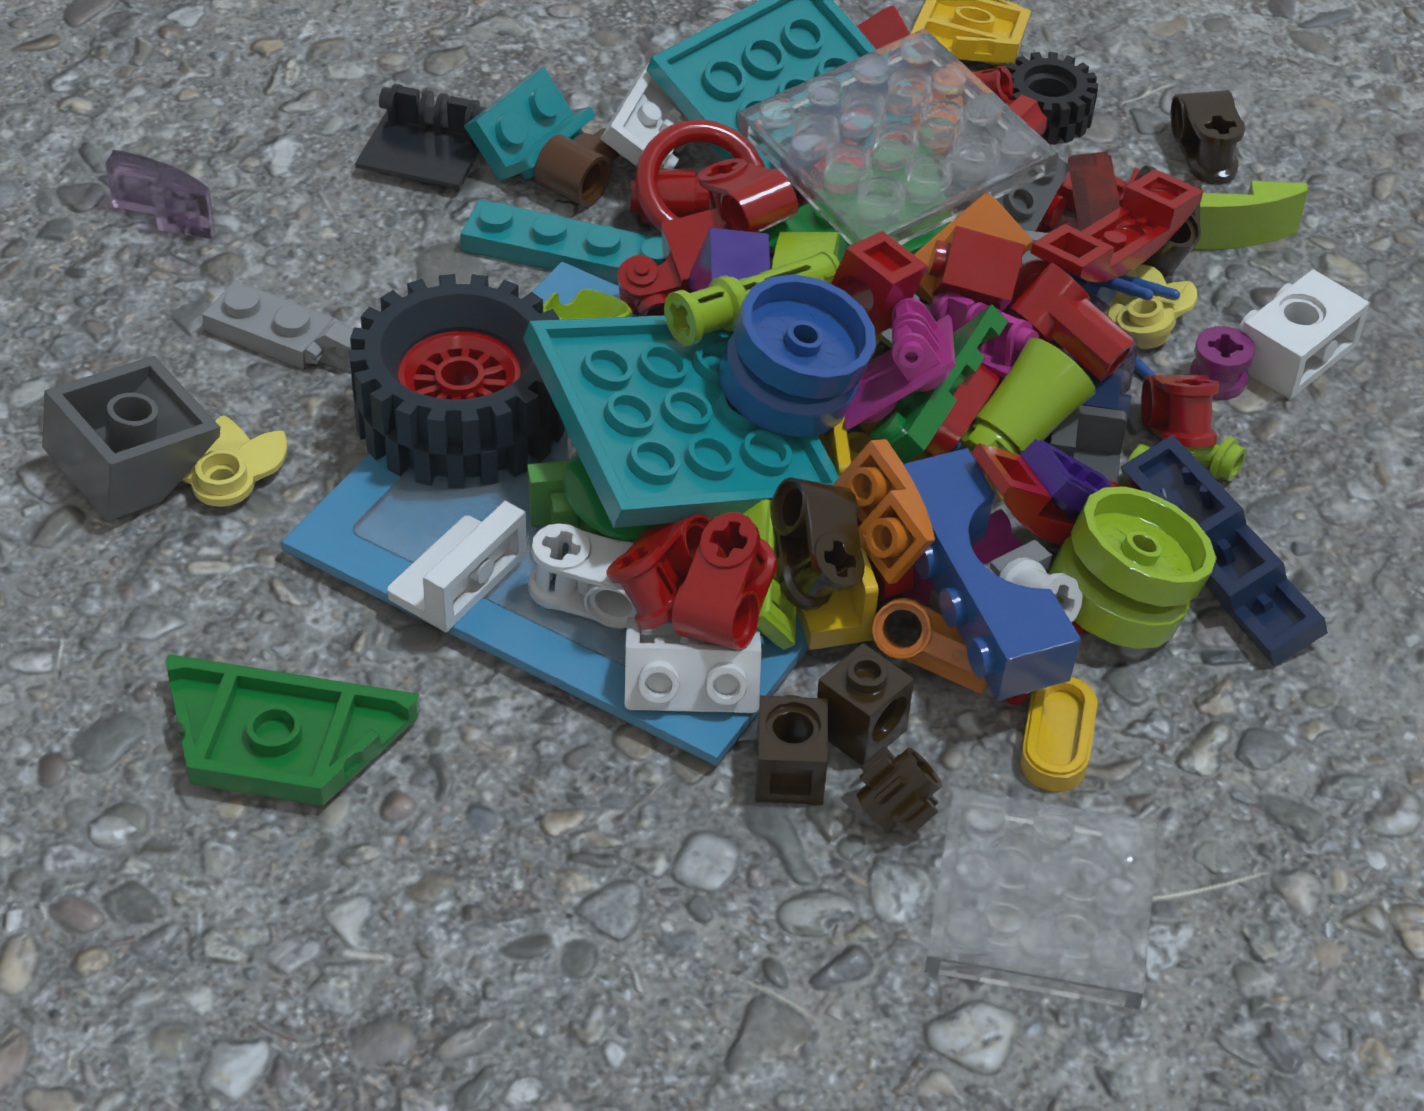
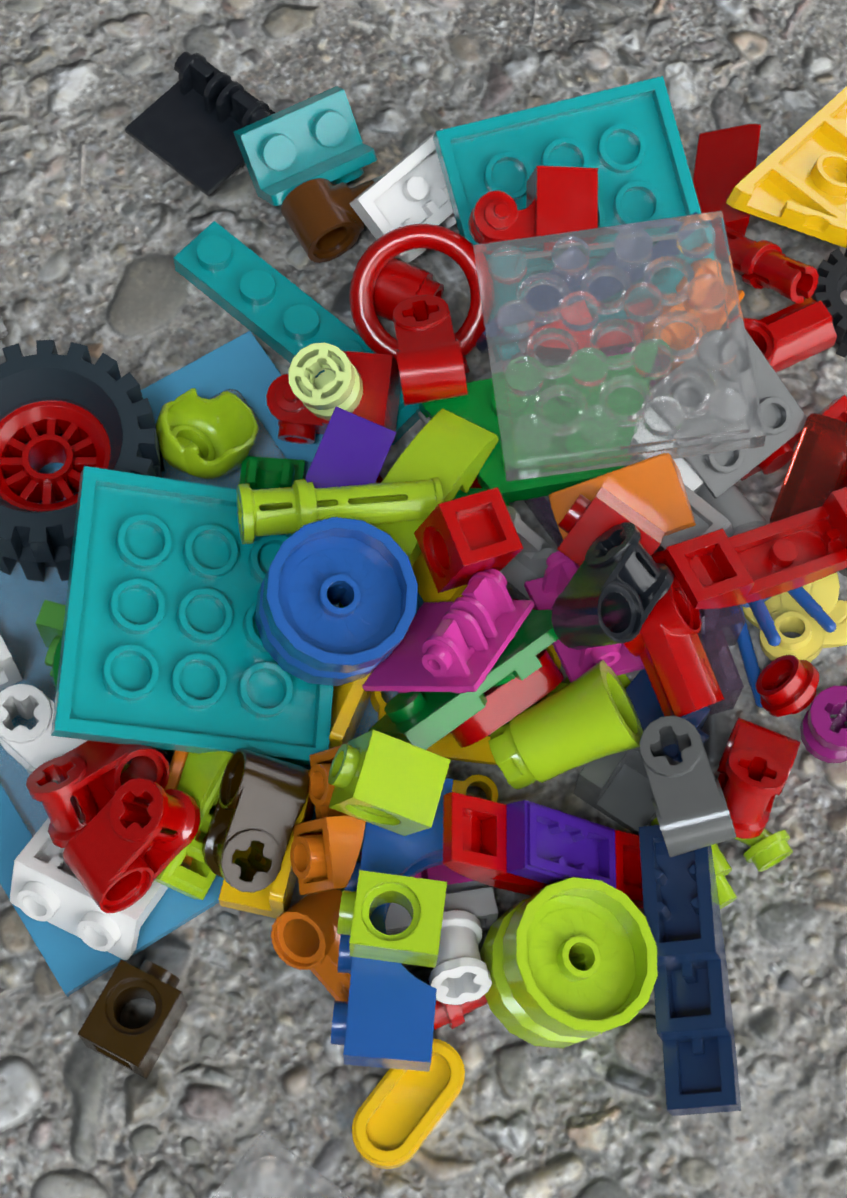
camera: 25 degrees right, 20 degrees up
(675, 234) = (335, 387): none -> yellowish green wheel
(771, 70) = (556, 203): none -> red brick
(865, 703) = (225, 1000): dark brown brick -> none
(899, 789) = (202, 1115): dark brown gear -> none
(929, 445) = (387, 782): none -> lime brick
(994, 537) = (419, 896): none -> lime brick
(1011, 277) = (610, 591): none -> black piece
(1146, 406) = (685, 794): none -> dark grey piece
(1167, 346) = (787, 685): none -> red plate

